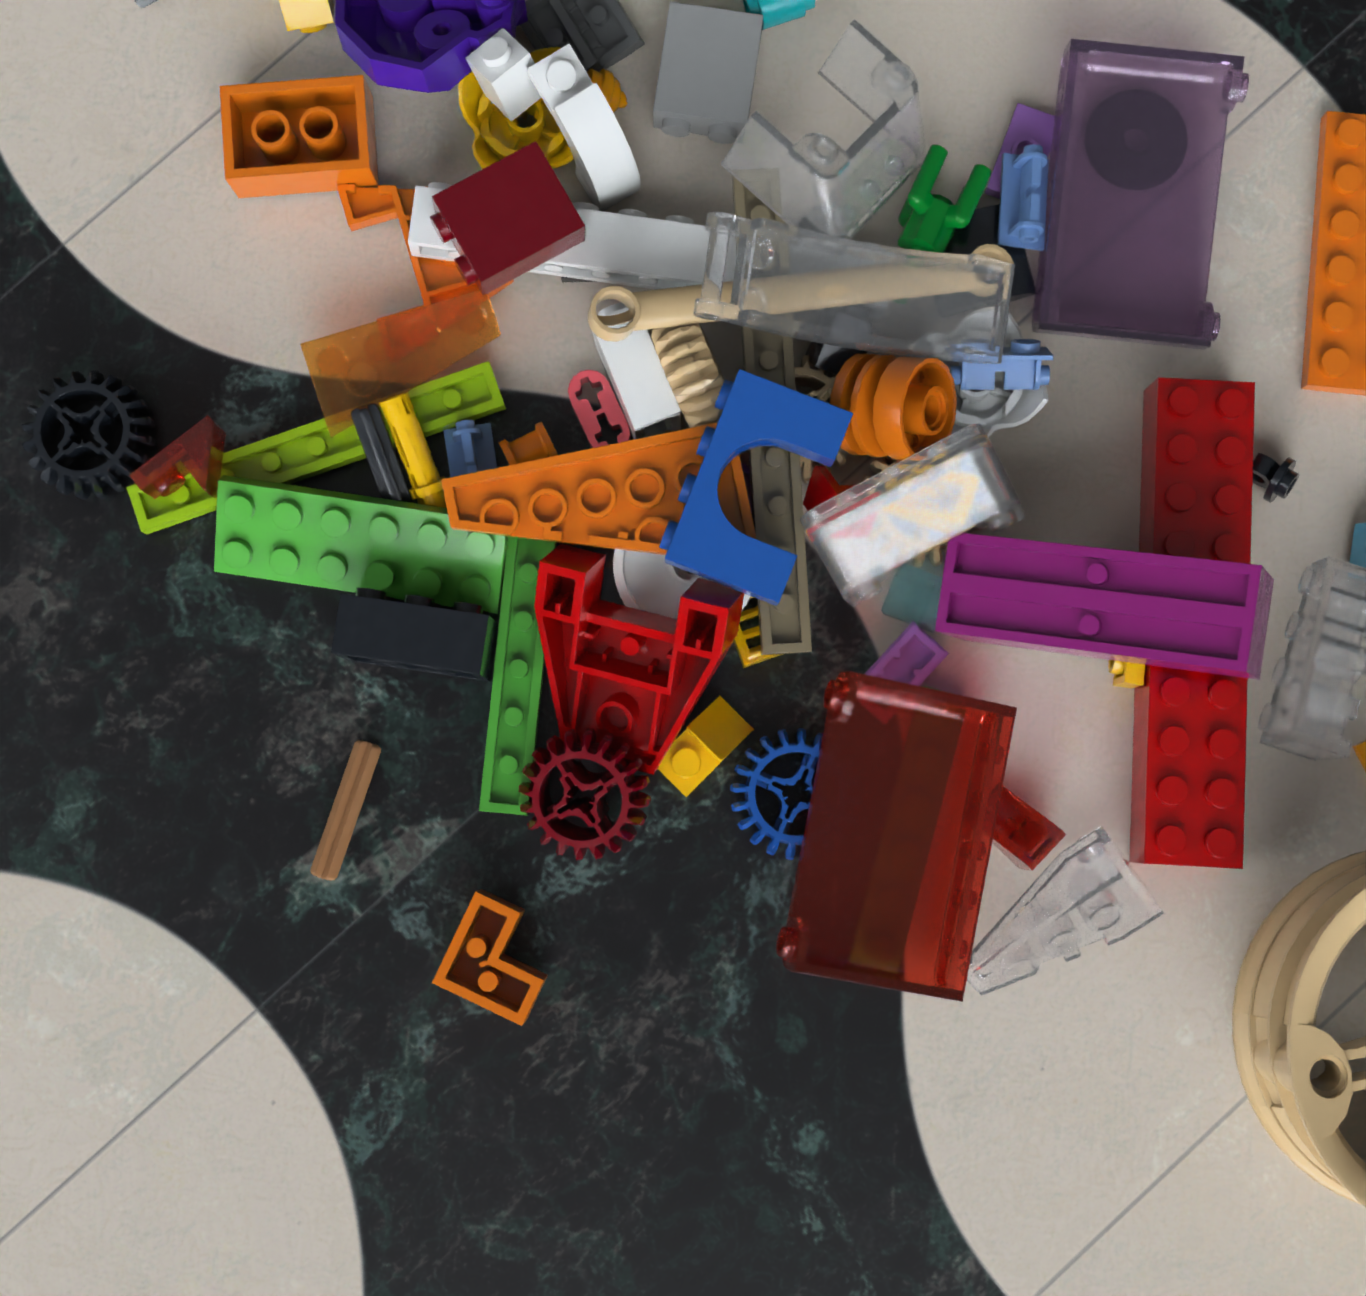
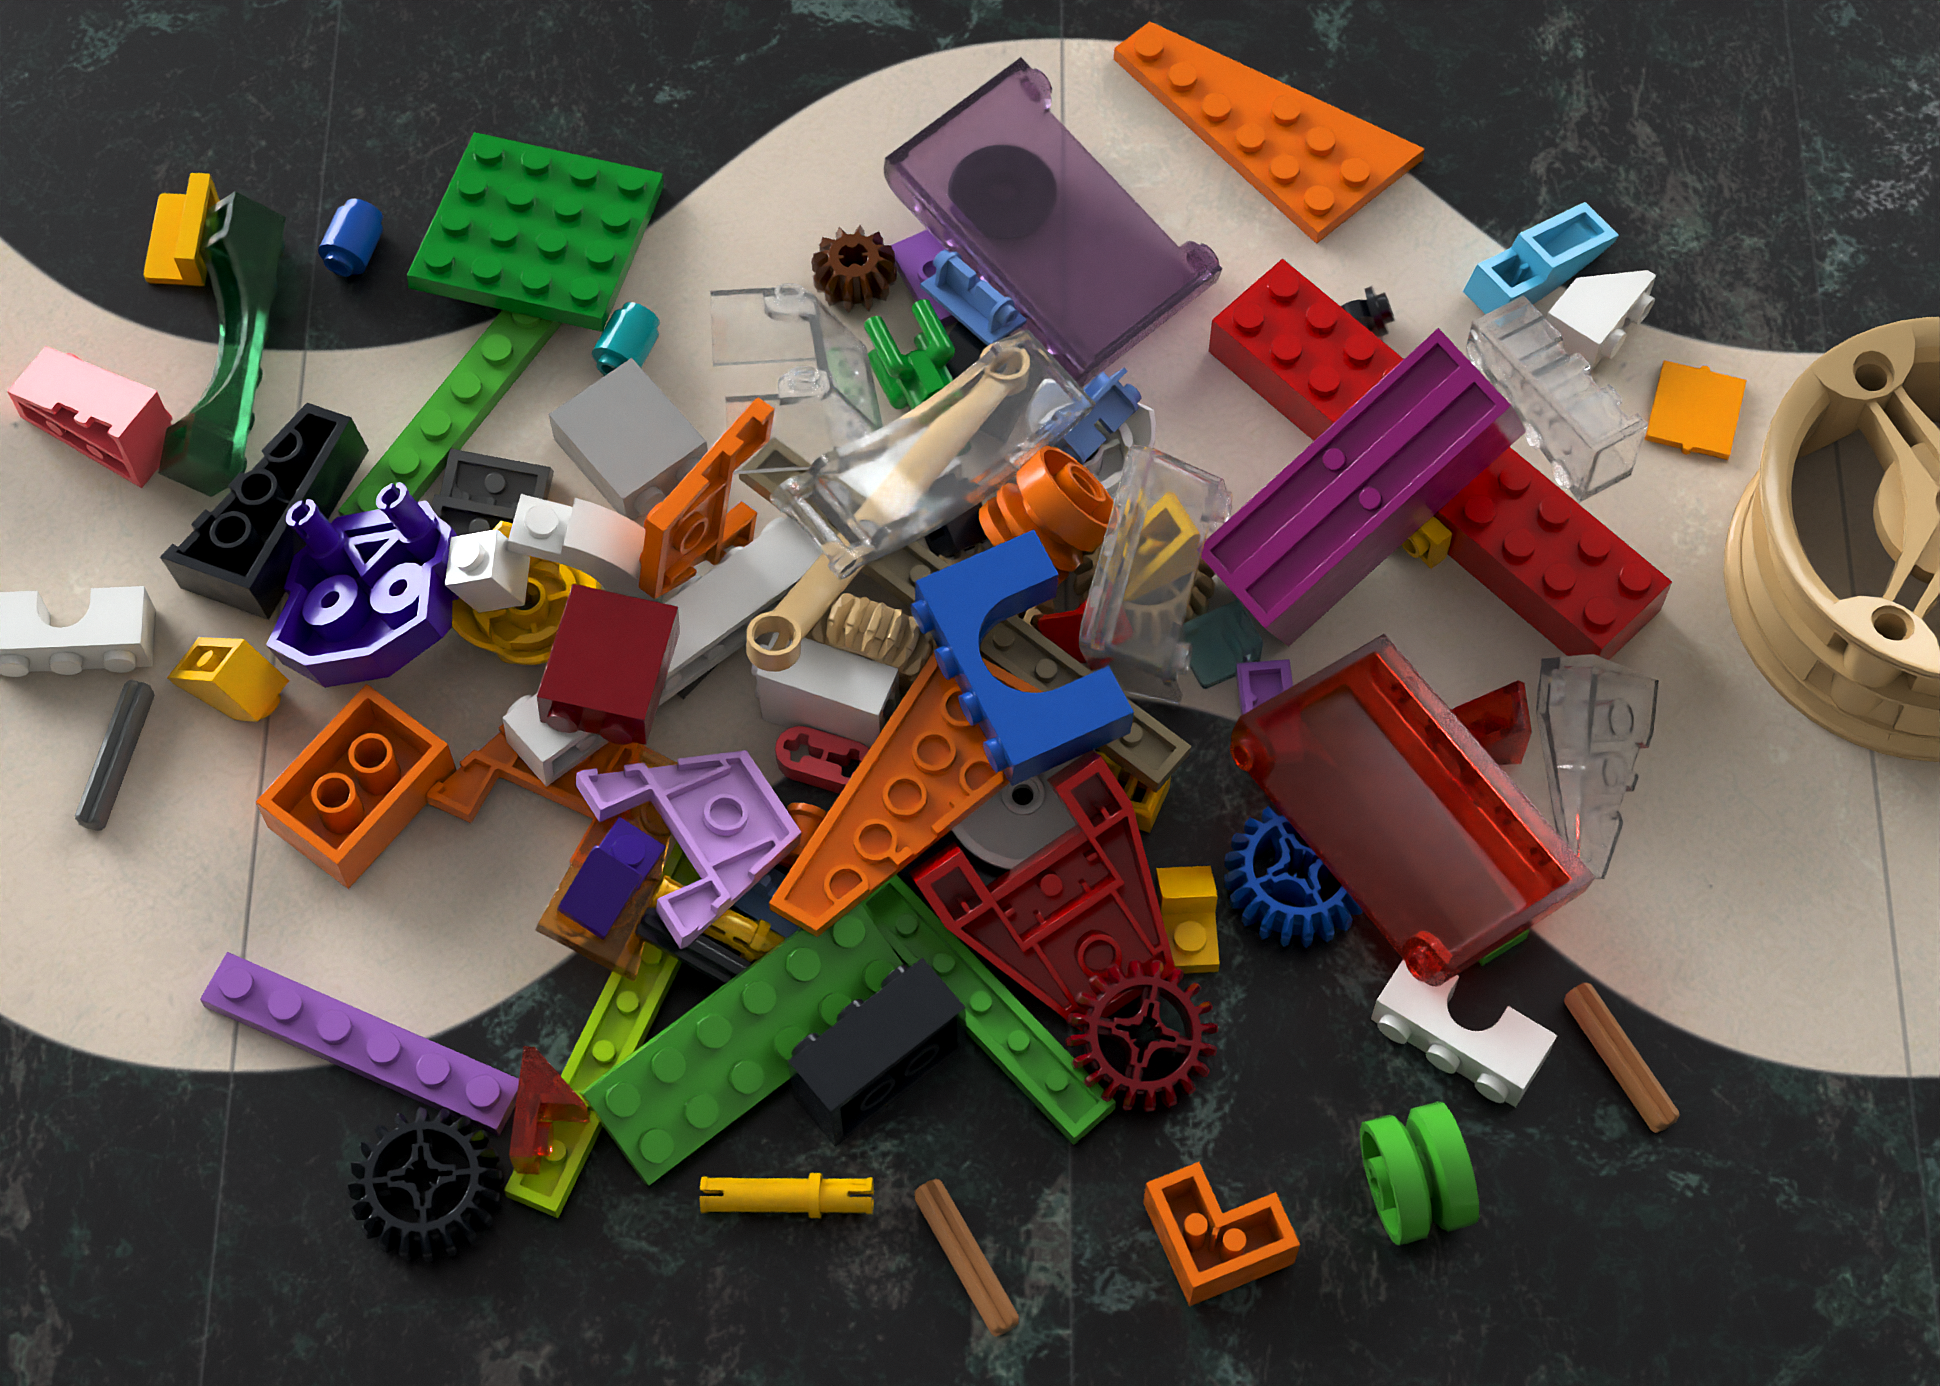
camera: 45 degrees left, 20 degrees down
(146, 301) = (362, 1043): none -> medium lavender plate
(296, 678) = (787, 1195): none -> yellow pin
(373, 360) = (610, 878): none -> dark purple slope
(479, 392) = (720, 818): none -> lavender wing
(644, 1057) = (1419, 1173): none -> bright green wheel
(669, 172) = (694, 517): none -> orange wing
(784, 1040) = (1496, 1059): none -> white arch
(858, 1113) = (1621, 1057): none -> medium nougat axle
(992, 90) = (854, 268): none -> reddish brown gear

